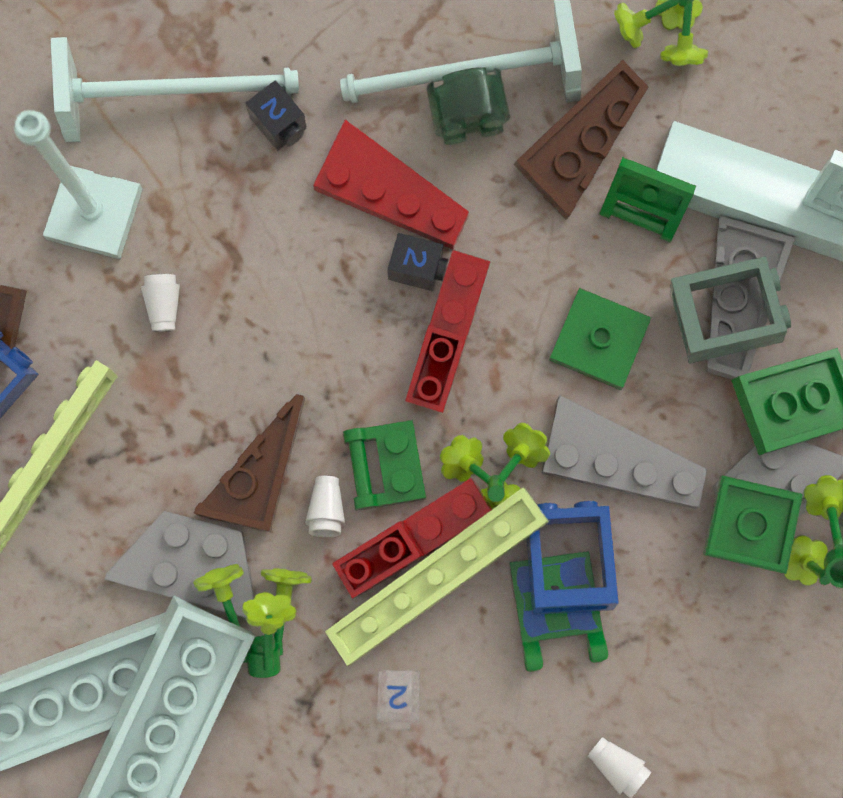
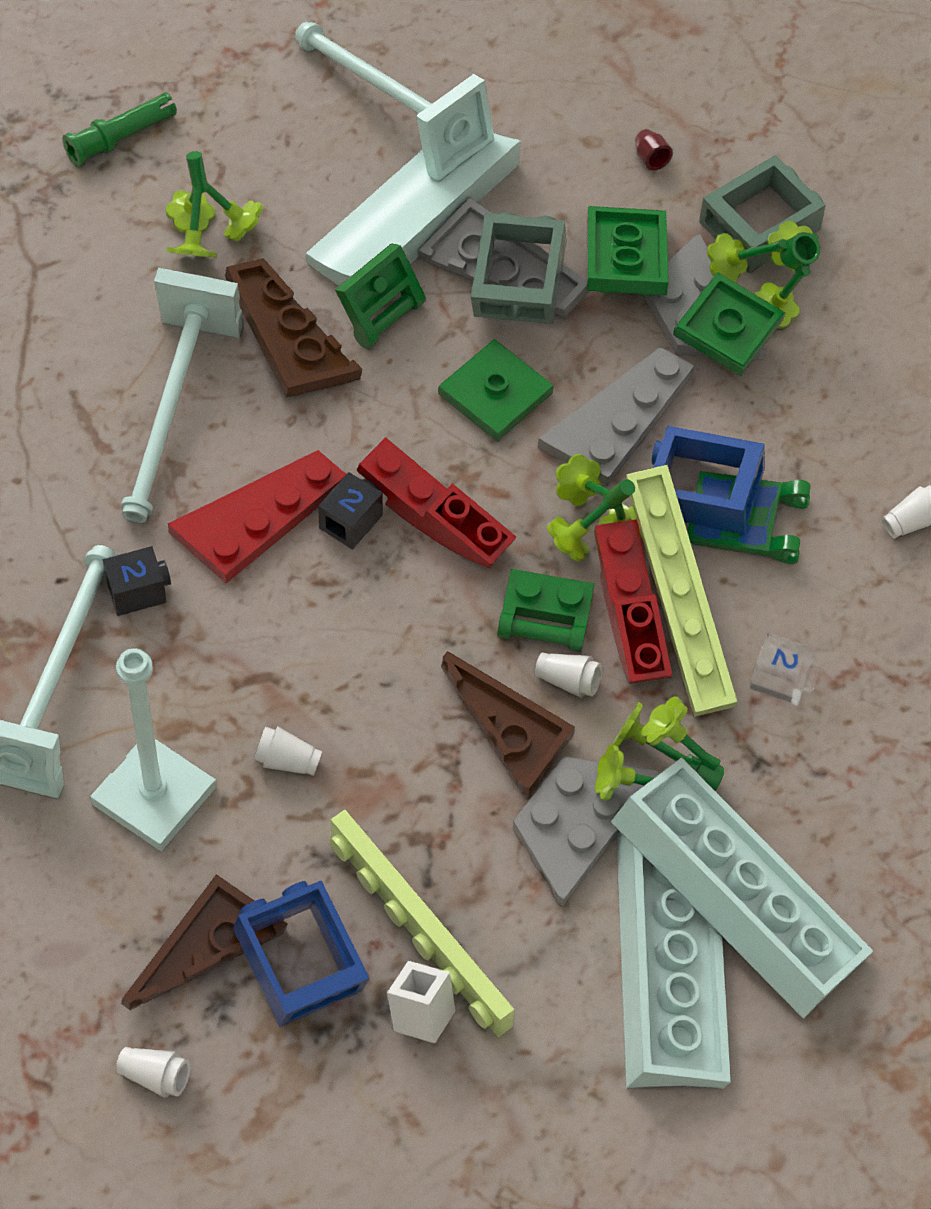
camera: 70 degrees left, 20 degrees down
(468, 104) = (213, 404): clear green brick -> none

